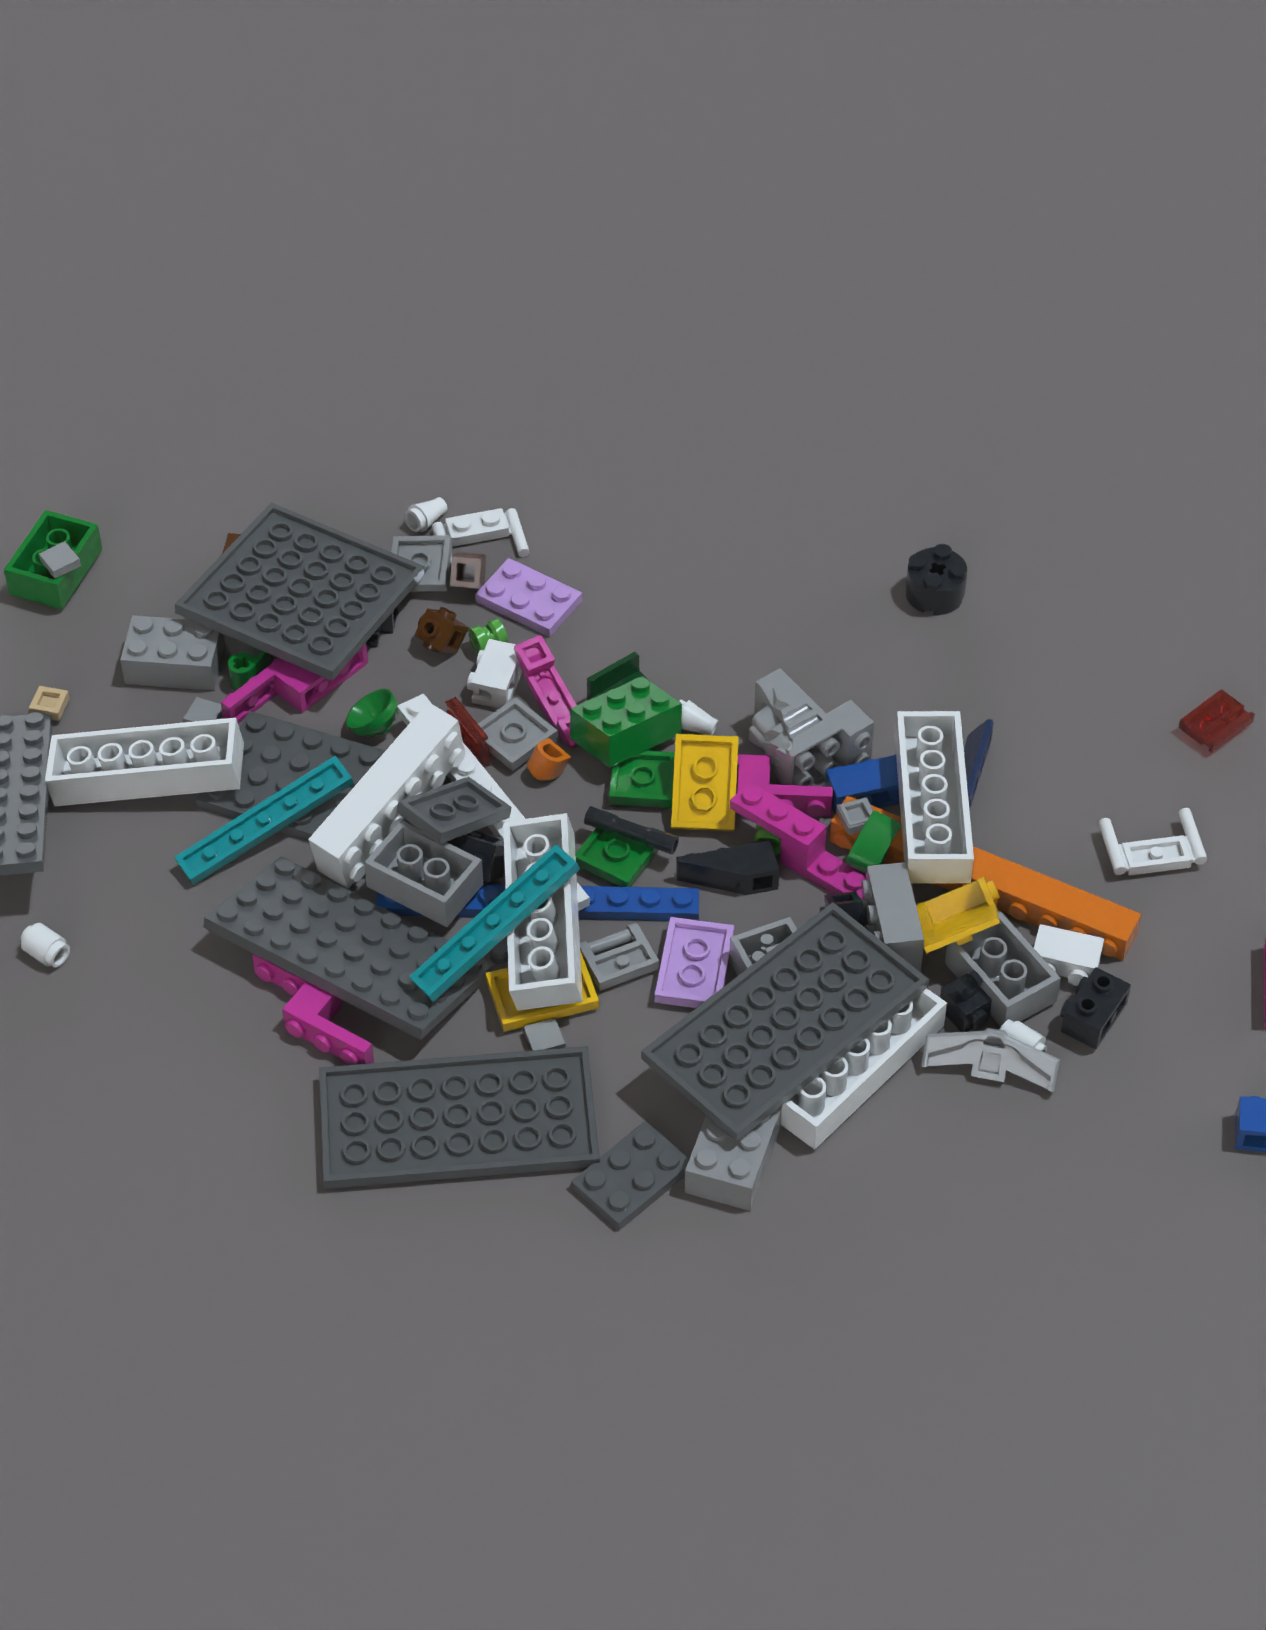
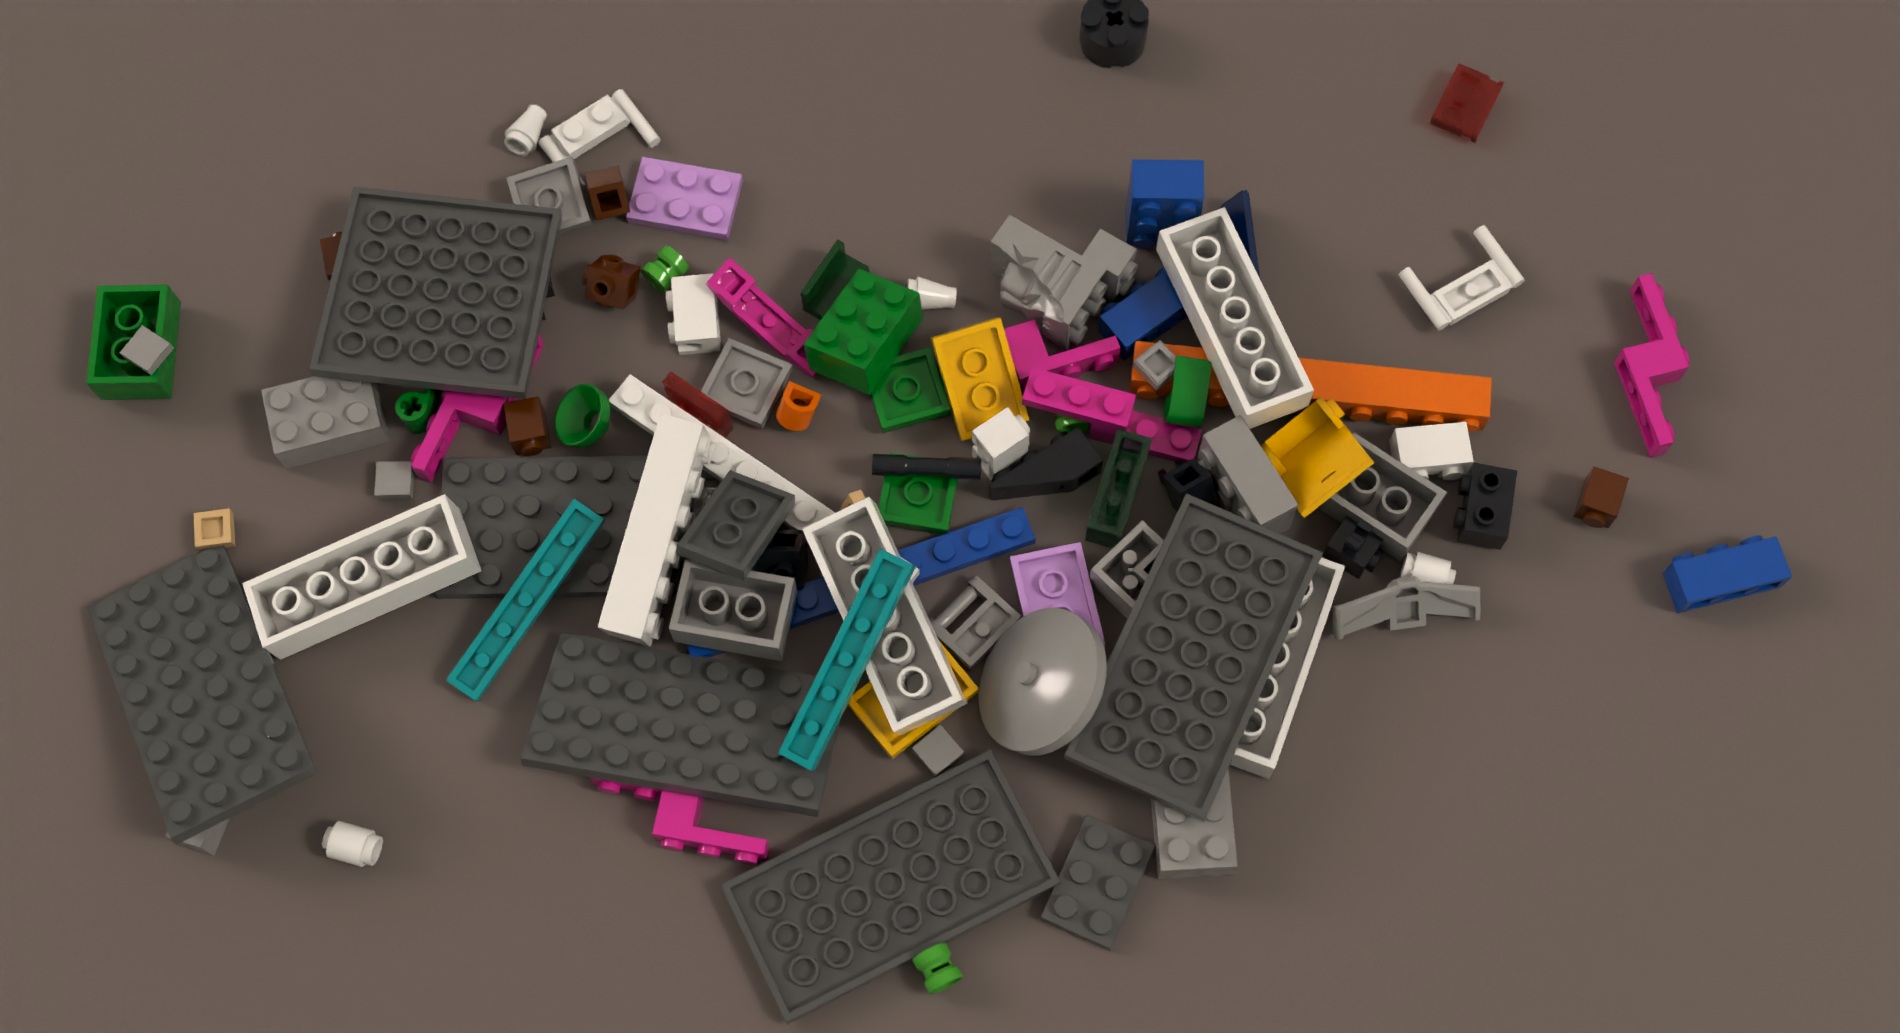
camera: 20 degrees left, 20 degrees up
(326, 708) = (527, 426): none -> reddish brown brick
(467, 1189) = (937, 968): none -> bright green wheel
(650, 1001) = (1042, 681): none -> light grey dish
(699, 827) = (1001, 442): none -> white brick
(785, 891) = (1118, 488): none -> clear green brick
(912, 686) = (1162, 196): none -> blue brick
(1201, 1036) = (1600, 498): none -> reddish brown brick

